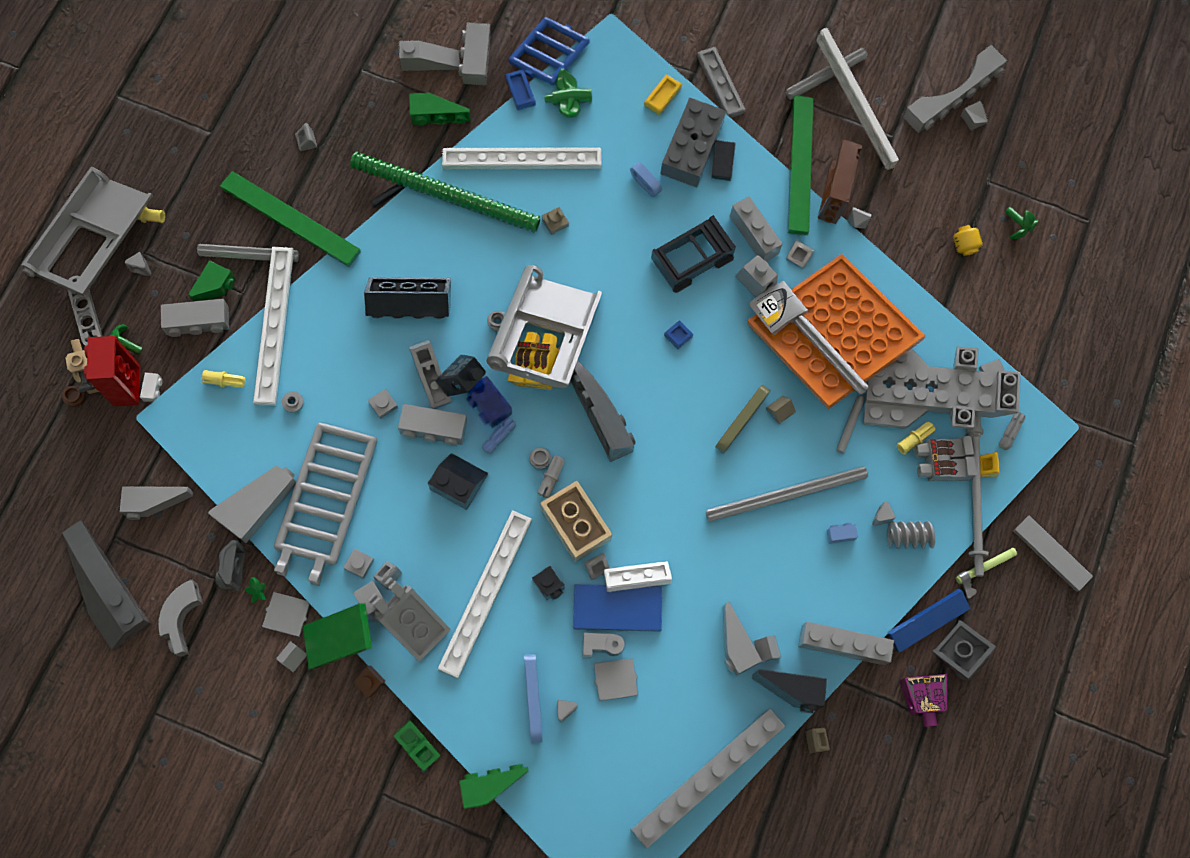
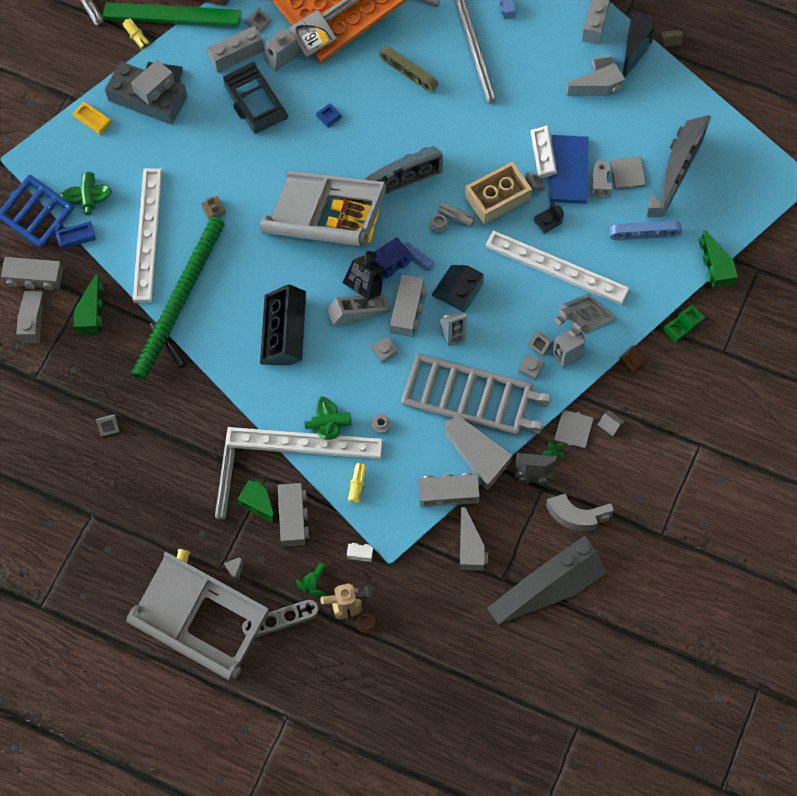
camera: 80 degrees left, 5 degrees down
(113, 371) = (354, 564): red brick -> none
(209, 473) = (448, 490): none -> light grey brick
(290, 219) = (193, 435): green tile -> none
(296, 347) = (328, 419): none -> green plant
(337, 636) = (599, 374): green tile -> none
(401, 471) = (454, 327): none -> light grey slope
(492, 317) = (309, 251): light grey plate -> none
(628, 741) = (683, 152): none -> dark grey wedge
(646, 179) = (179, 132): medium blue beam -> none
(693, 139) = (153, 82): none -> light grey brick
(707, 778) = (703, 103): light grey brick -> none
(721, 82) = (80, 74): light grey tile -> none
(774, 131) = (136, 33): none -> light yellow axle
(781, 409) = (399, 42): dark tan slope -> none

